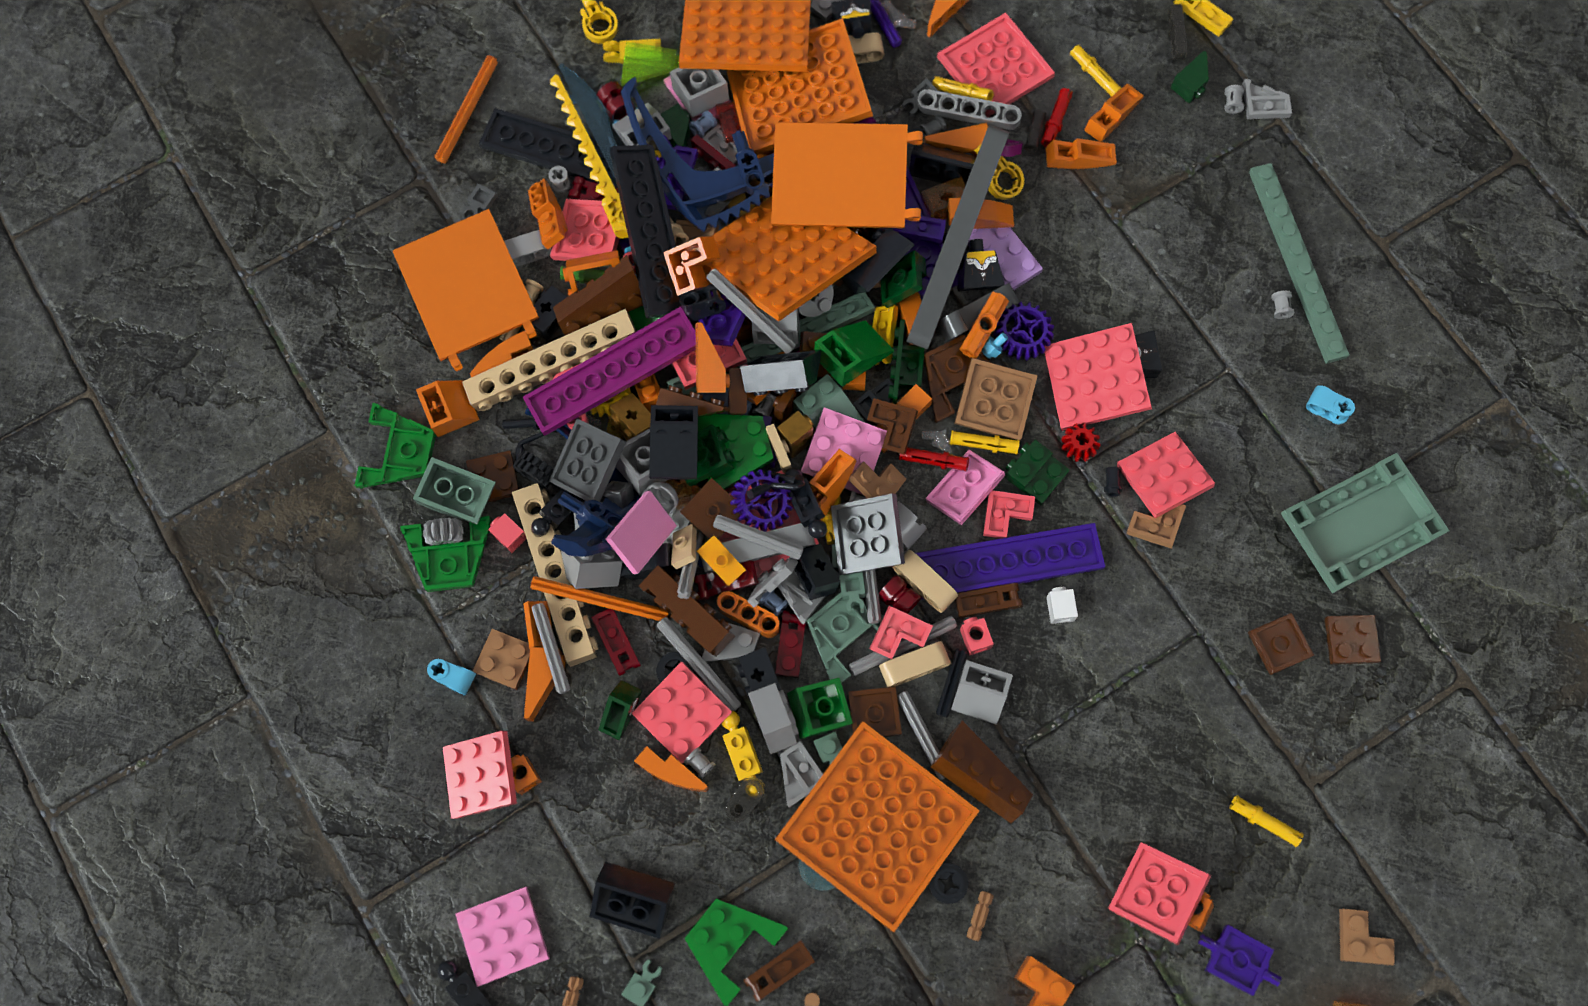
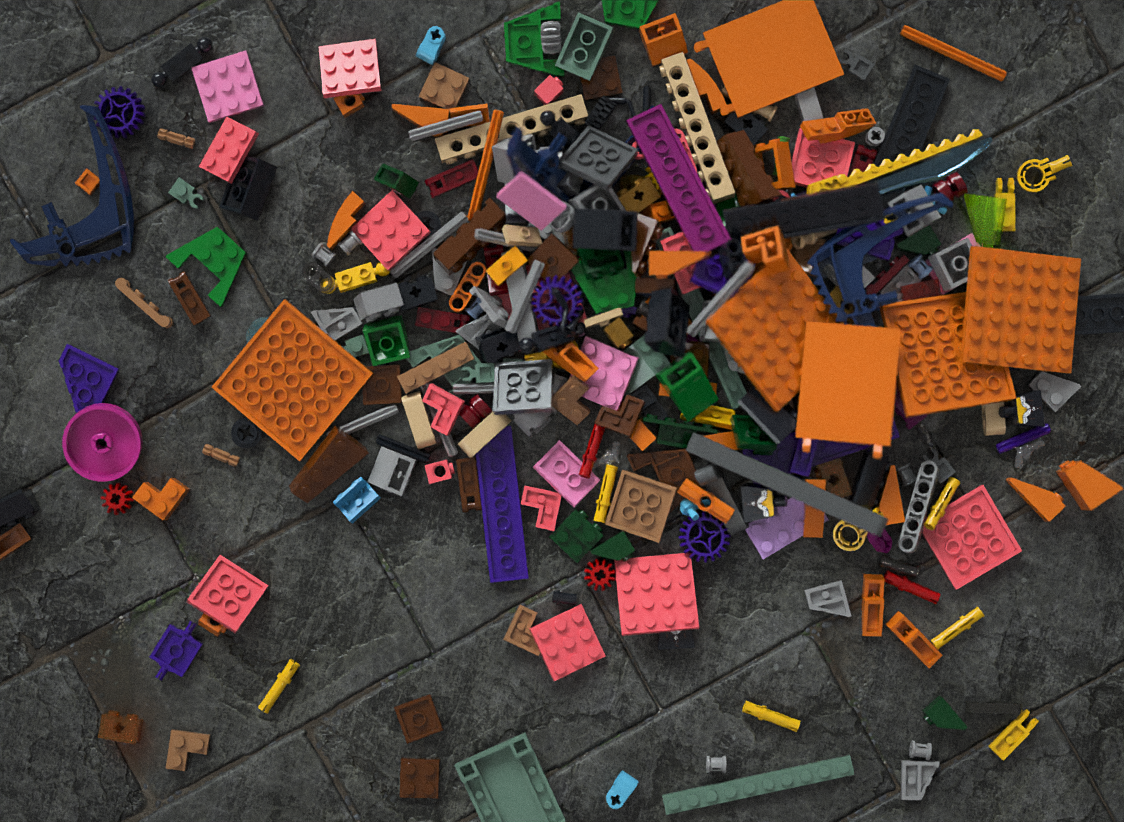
camera: 90 degrees right, 15 degrees up
(584, 928) = (229, 150): none -> coral plate
(715, 795) = (323, 254): none -> light grey bush
(849, 646) = (435, 367): none -> medium nougat plate
(1020, 735) = (356, 499): none -> dark azure bracket
(1046, 426) = (615, 548): none -> dark green slope
(1061, 605) = (460, 543): white brick -> none
(1079, 199) = (828, 598): none -> light grey wing
(1217, 257) = (766, 714): none -> yellow pin

